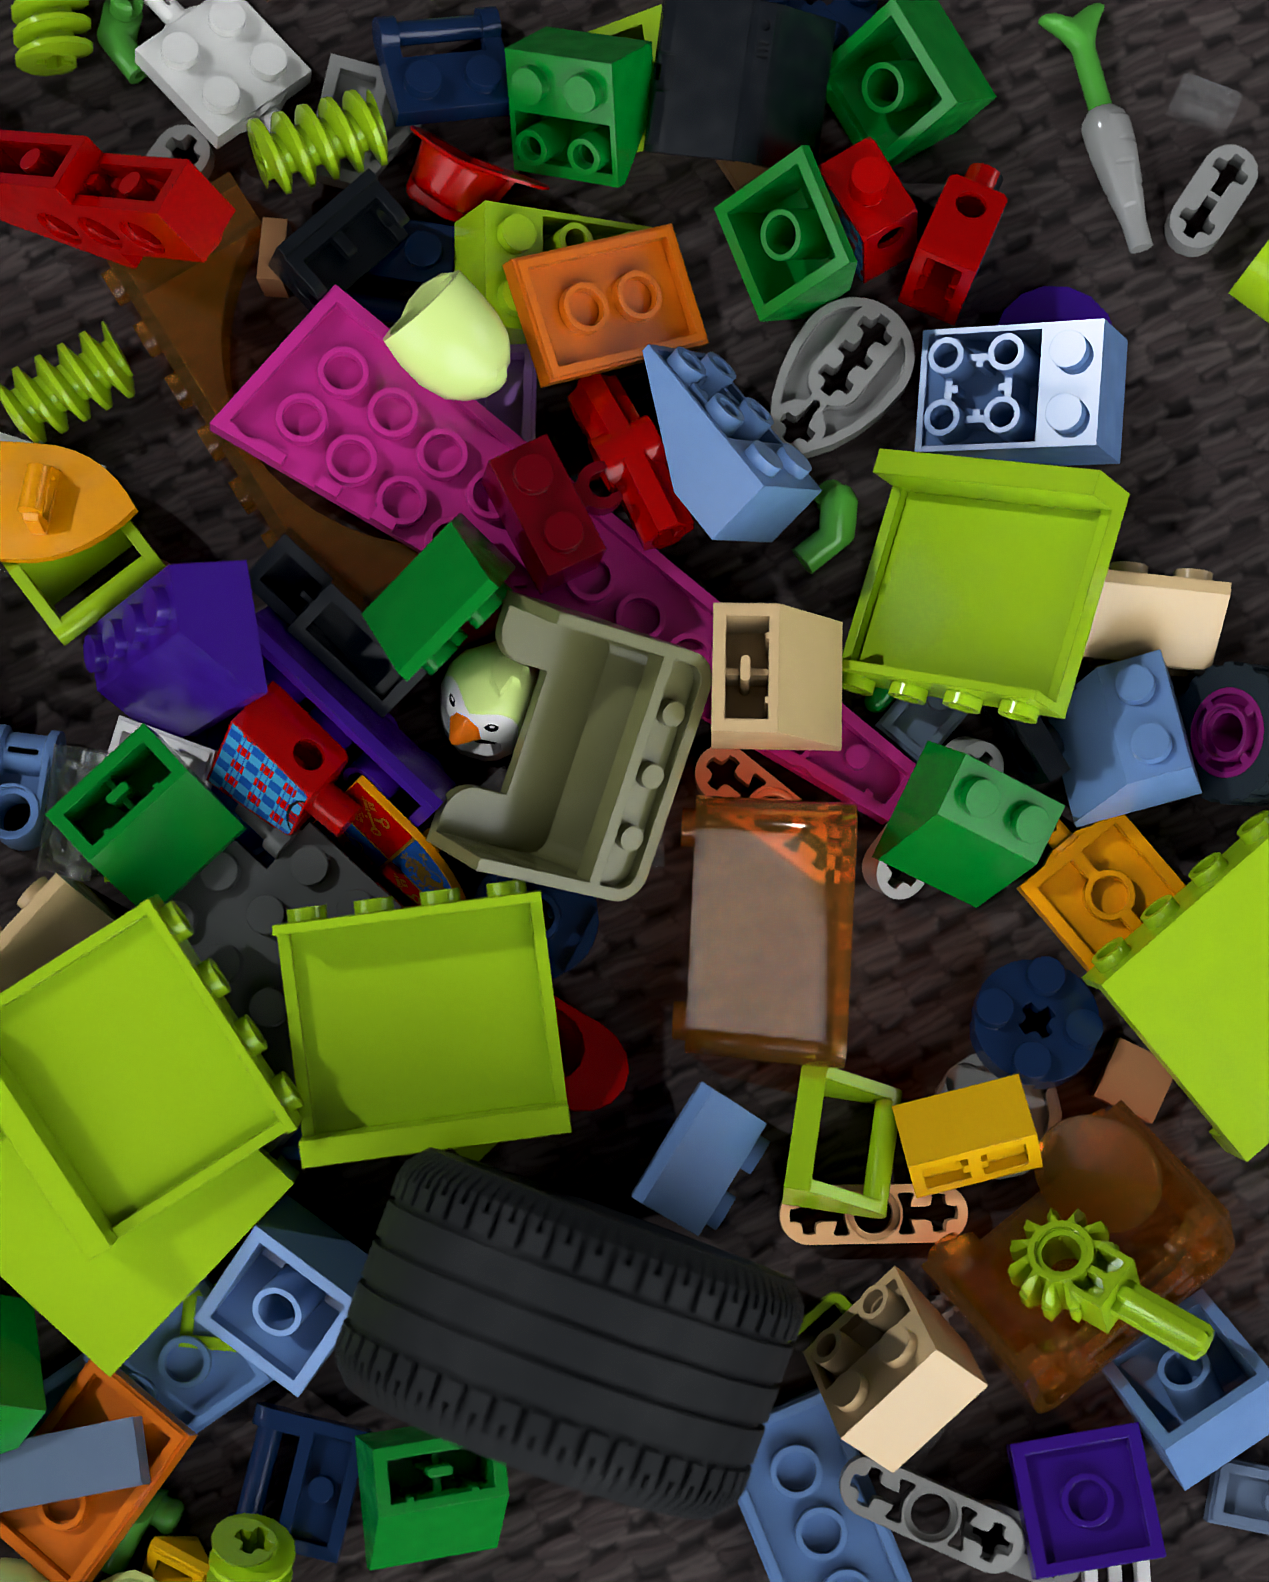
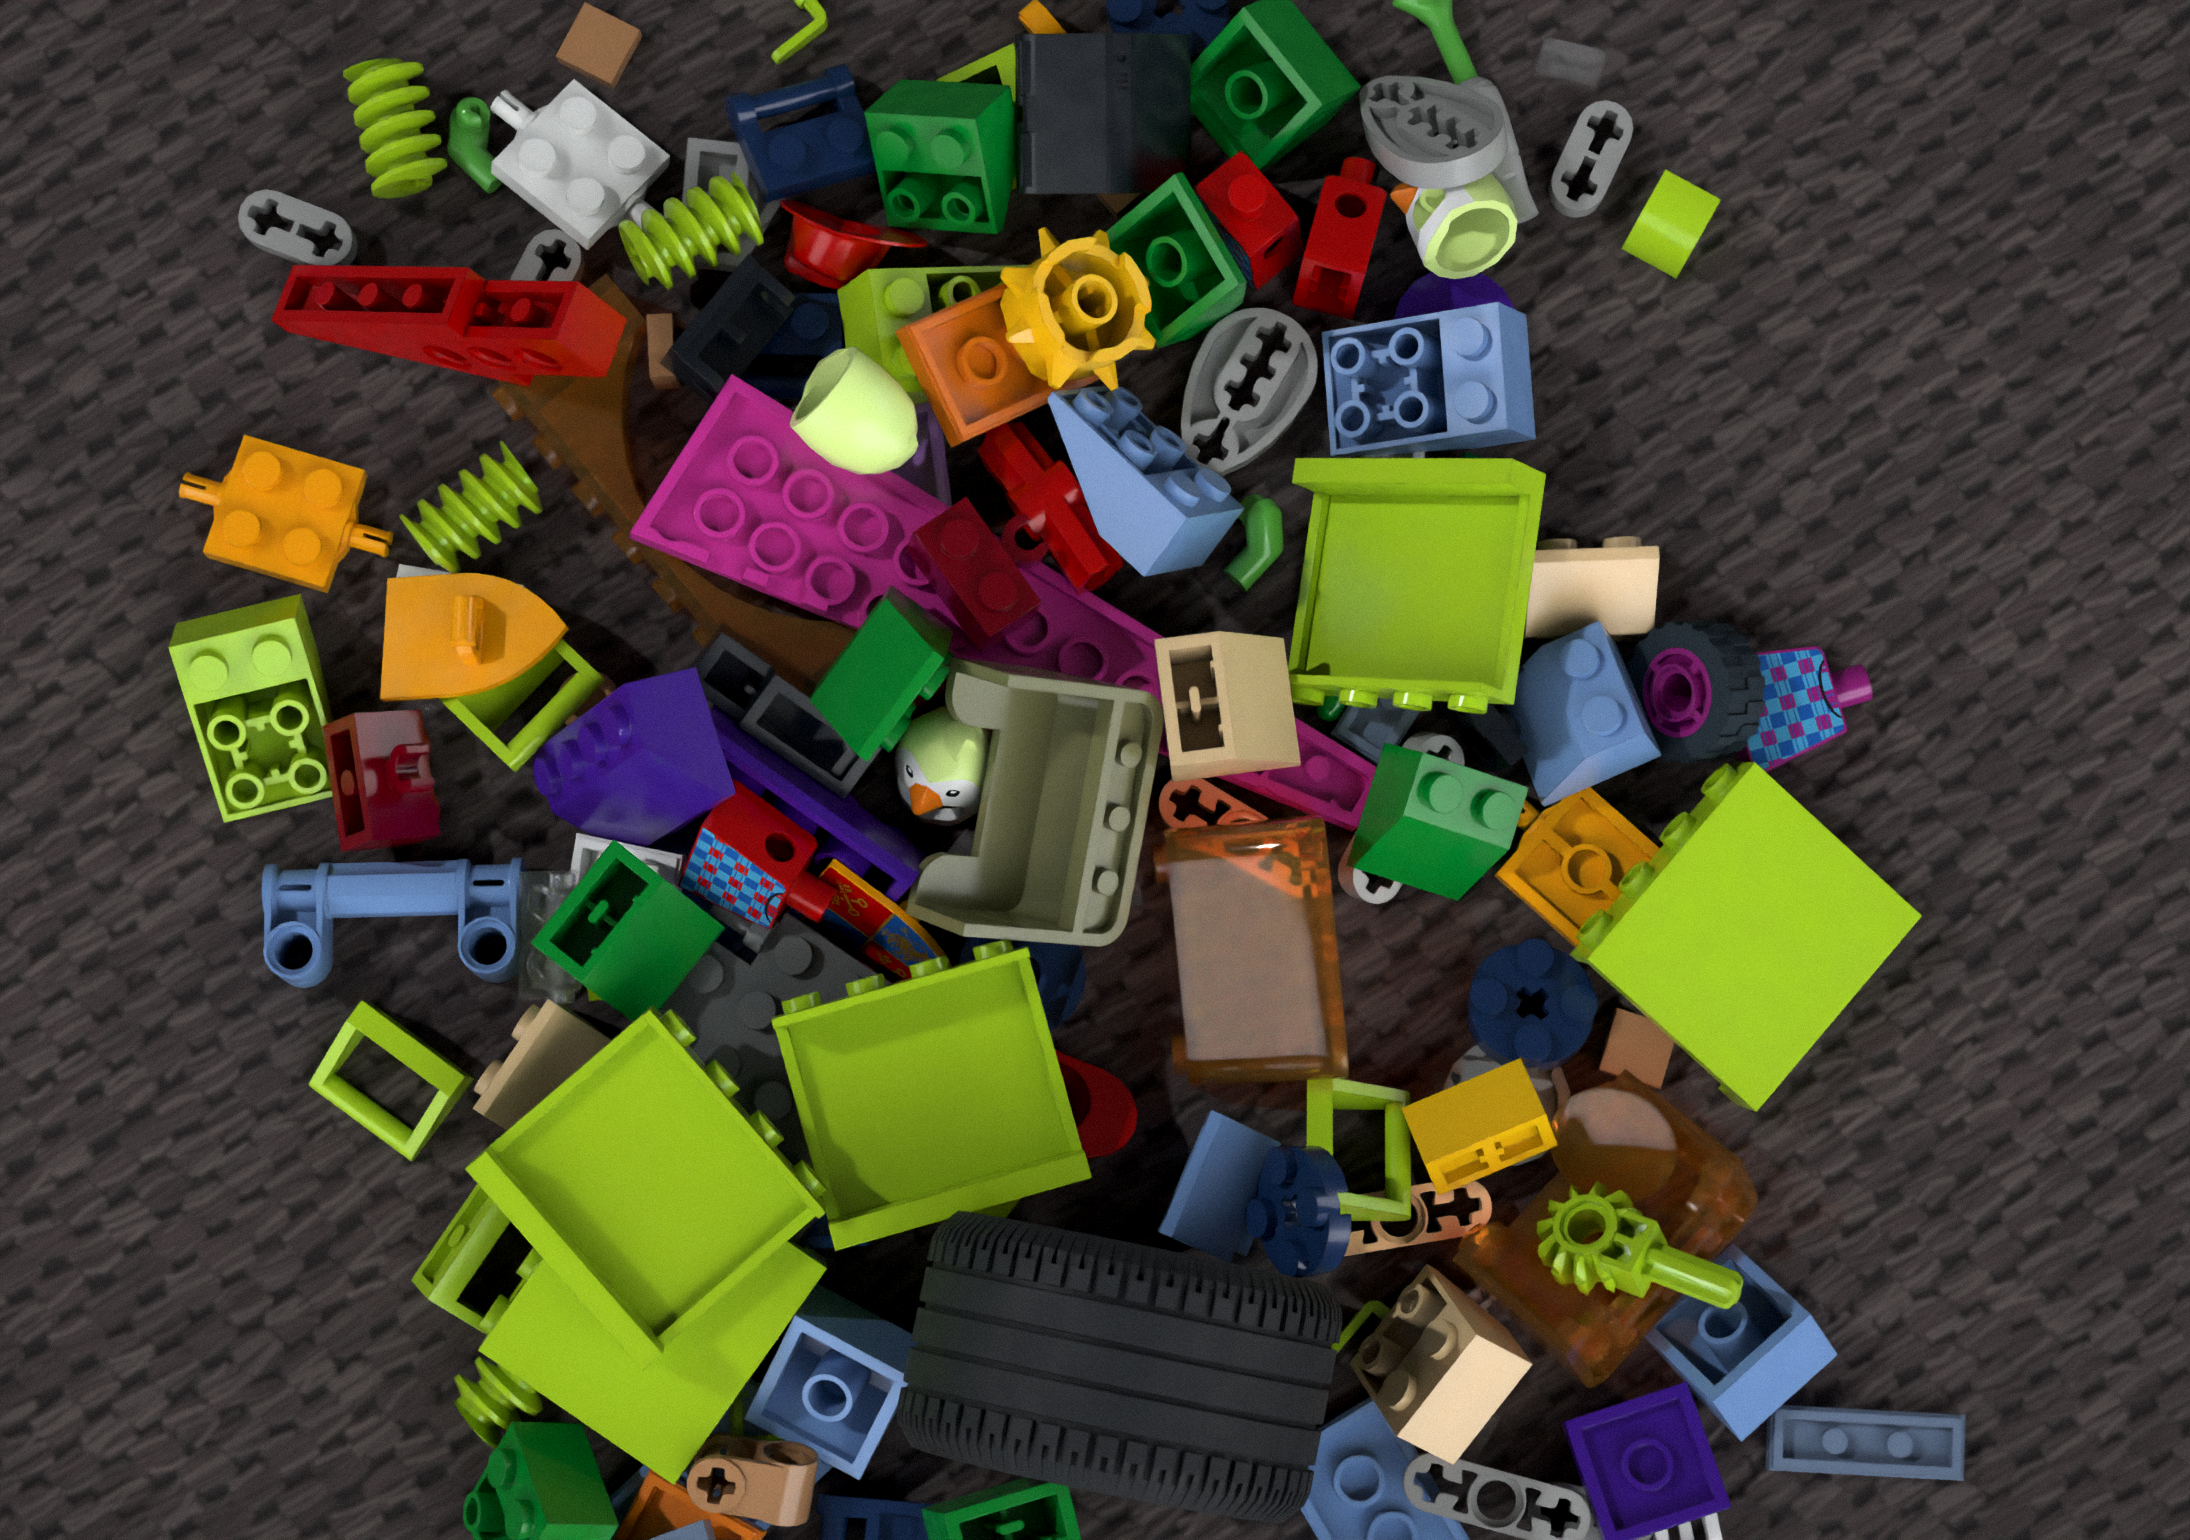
camera: 10 degrees left, 0 degrees up
(197, 1382) = (760, 1481): none -> medium nougat piece
(684, 269) = (1076, 309): none -> yellow brick
(776, 1196) = (1300, 1211): none -> dark blue plate
(1062, 146) = (1401, 124): none -> light grey piece
(1073, 233) = (1459, 227): none -> yellowish green piece

